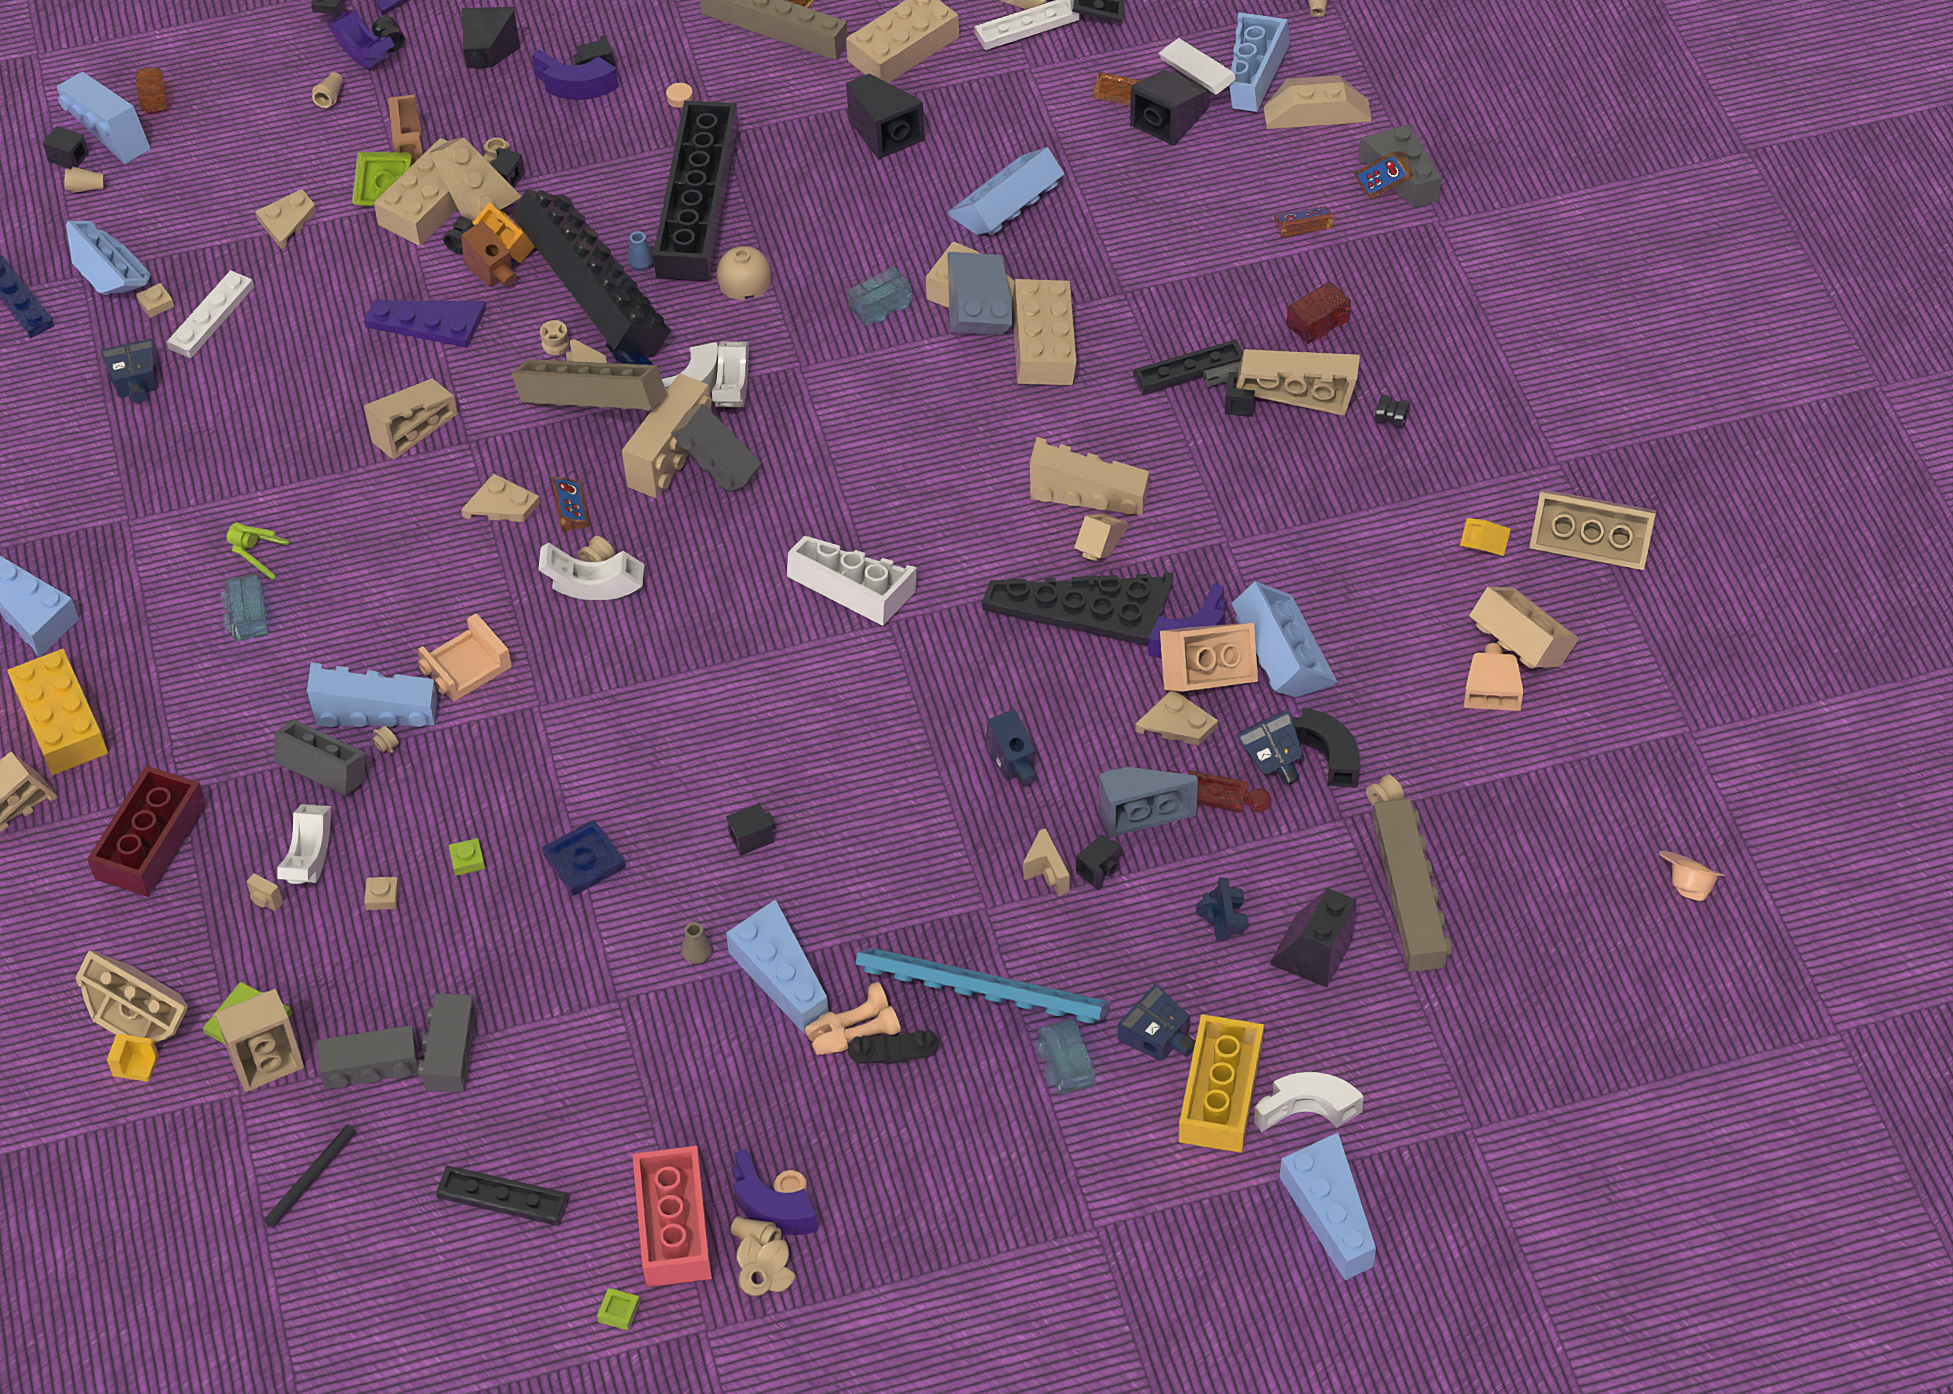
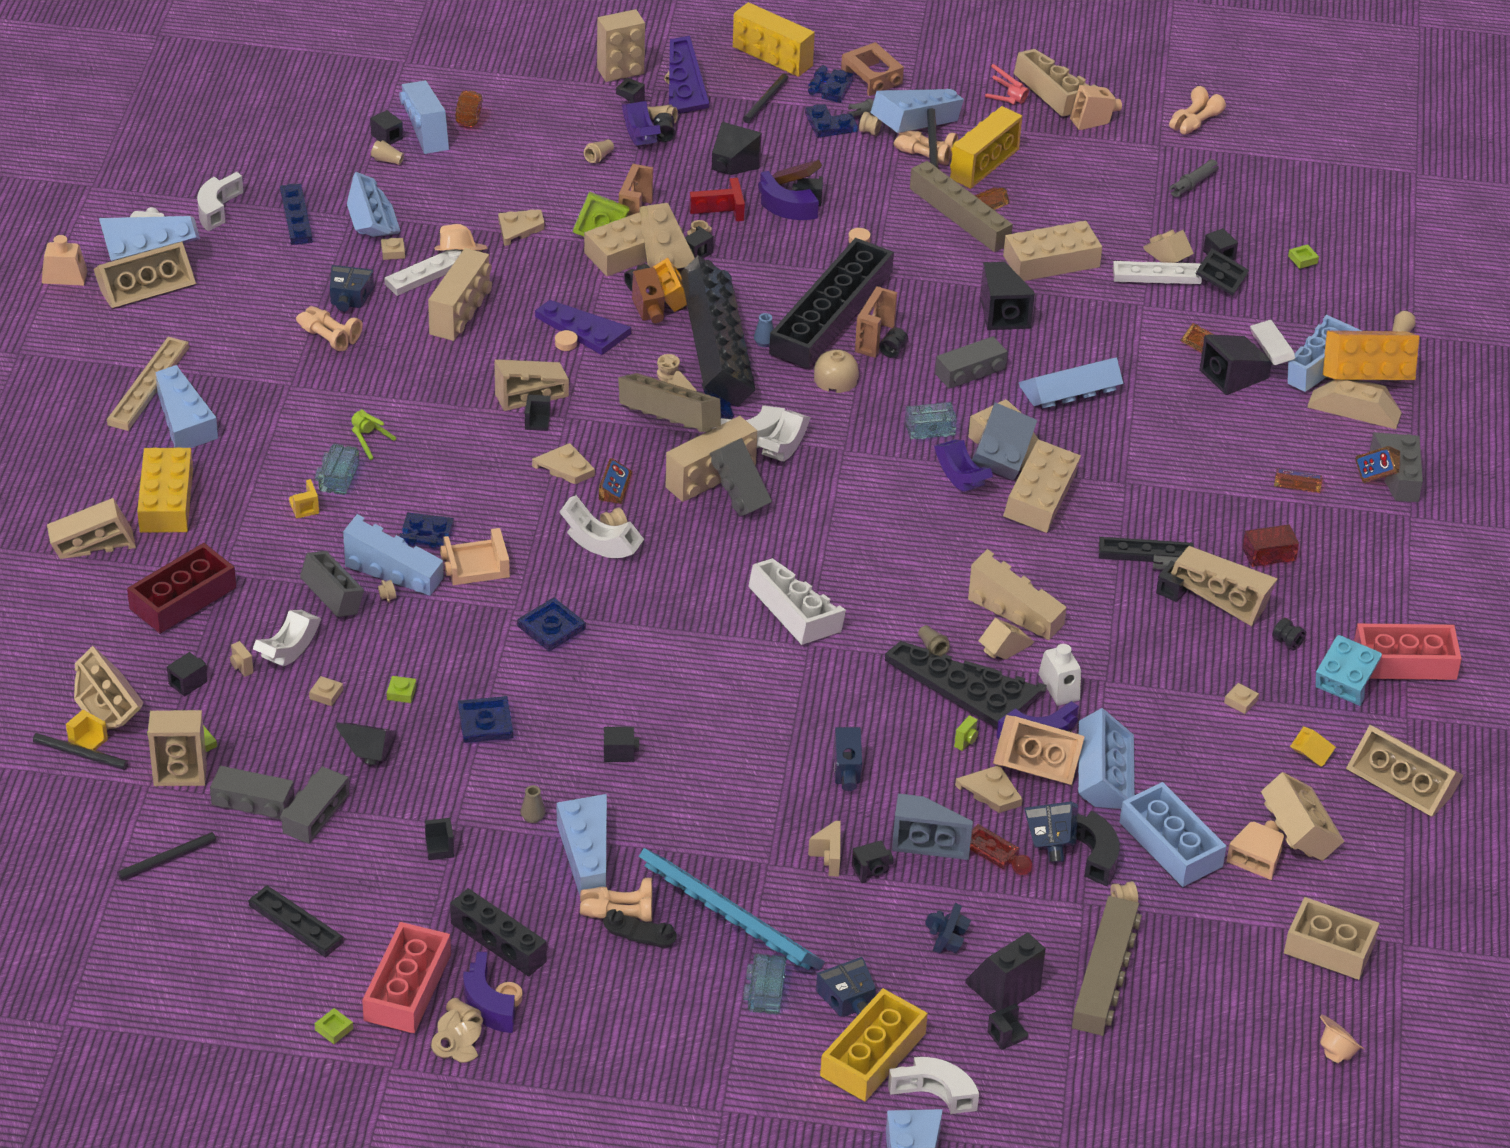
camera: 20 degrees right, 10 degrees down
(115, 427) = (318, 321): none -> light nougat piece
(136, 1084) = (80, 751): none -> black bar
(210, 936) = (187, 673): none -> black brick
(227, 262) = (457, 237): none -> light nougat piece
(228, 664) = (305, 503): none -> yellow panel
(271, 333) = (459, 294): none -> tan brick
(370, 16) = (653, 111): none -> tan cone
(386, 640) = (426, 530): none -> clear blue plate
(418, 345) = (566, 340): none -> light nougat tile
(436, 449) = (537, 412): none -> black panel
(465, 938) = (367, 741): none -> black slope
(503, 104) = (719, 200): none -> red bracket
(574, 40) = (797, 172): none -> reddish brown tile
(594, 709) = (551, 624): none -> clear blue plate
(613, 1028) = (439, 839): none -> black panel
(741, 1116) = (498, 932): none -> black brick
(758, 188) = (869, 326): none -> nougat panel
(788, 213) = (893, 342): none -> black wheel
(885, 207) = (971, 362): none -> dark grey brick
(942, 342) = (959, 467): none -> dark purple arch
(1024, 565) = (934, 641): none -> dark tan cone
(1119, 665) = (966, 733): none -> lime plate
(1184, 554) = (1061, 674): none -> white torso
(1312, 46) = (1371, 355): none -> light orange brick
(1344, 1003) = (1005, 1027): none -> black panel
(1380, 507) = (1241, 698): none -> tan plate
(1399, 700) = (1172, 834): none -> light blue brick
(1479, 432) = (1347, 669): none -> medium azure bracket
(1525, 386) = (1412, 650): none -> coral brick
(1624, 757) = (1331, 938): none -> tan brick

